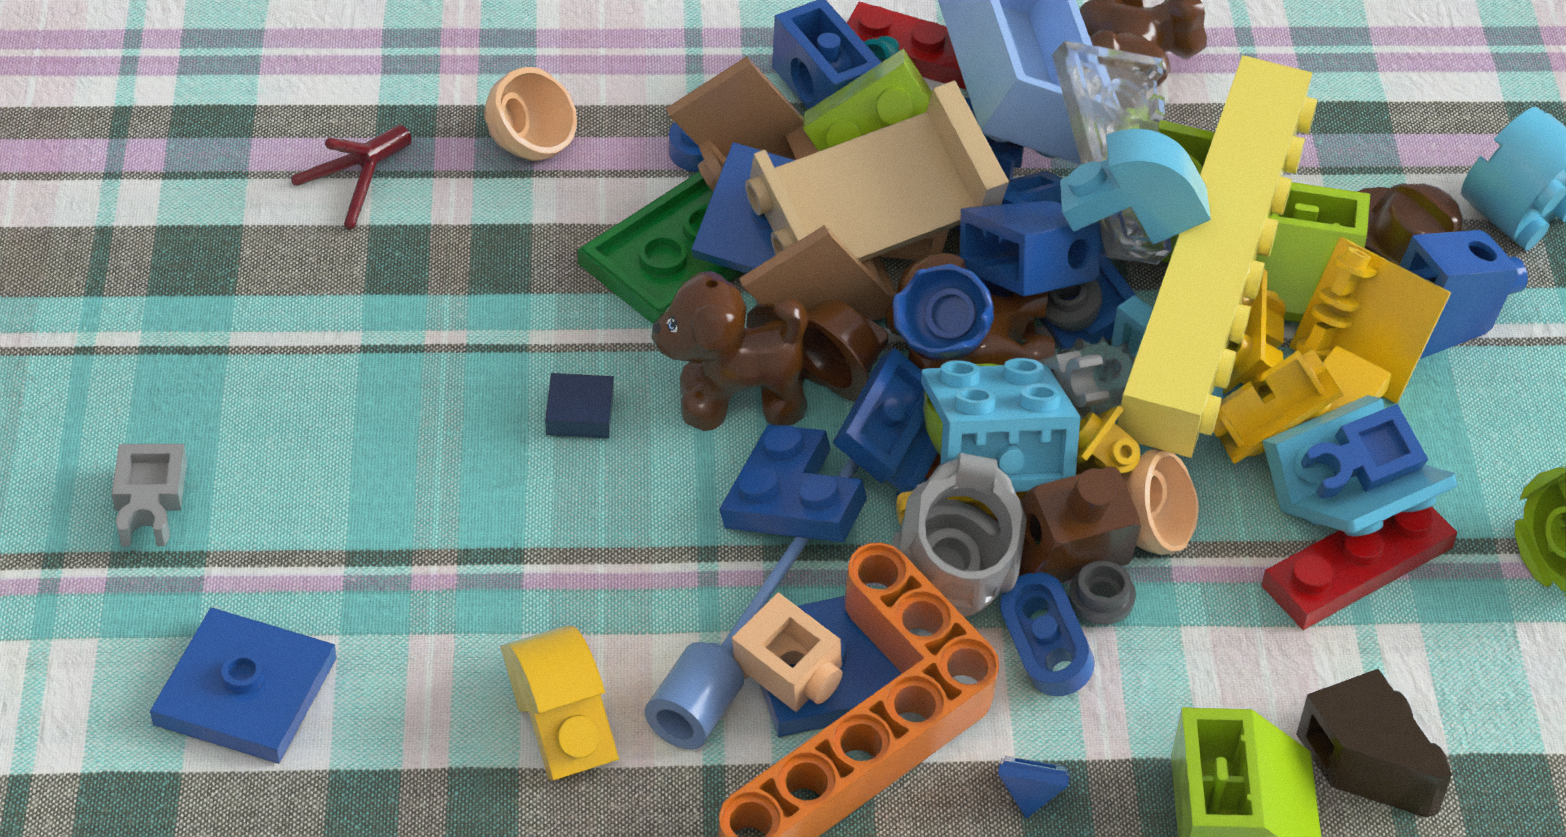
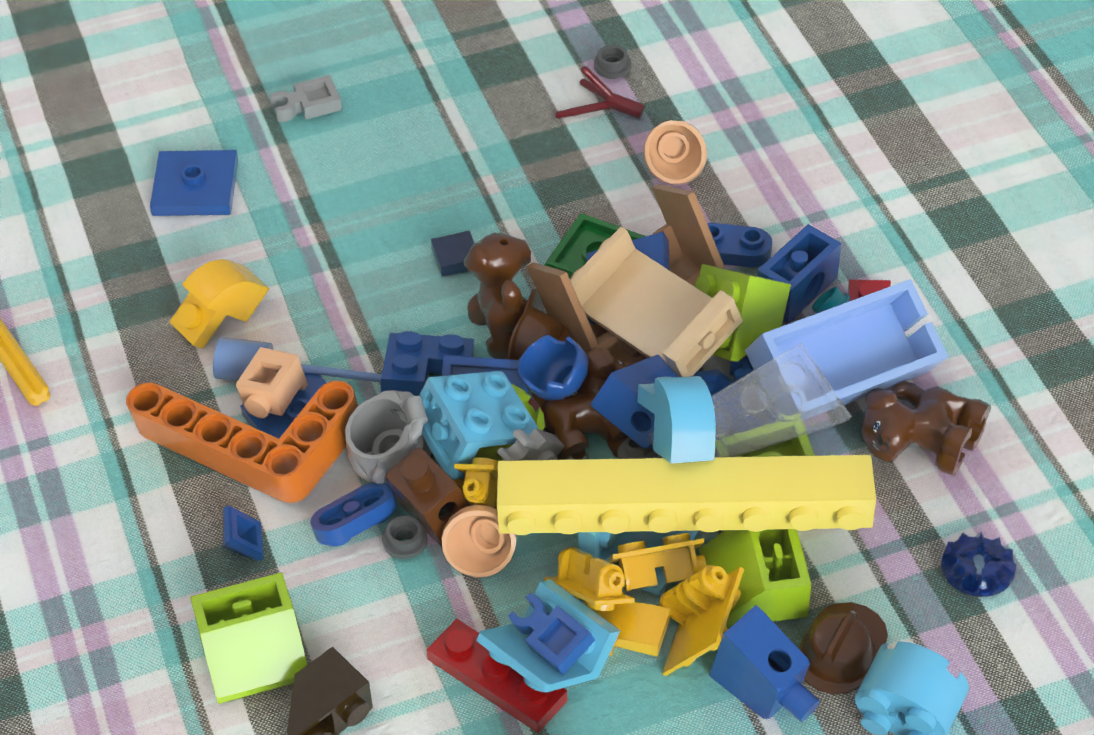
camera: 75 degrees right, 0 degrees up
(287, 132) = (612, 62): none -> dark grey plate
(1341, 93) = (962, 574): none -> clear blue gear

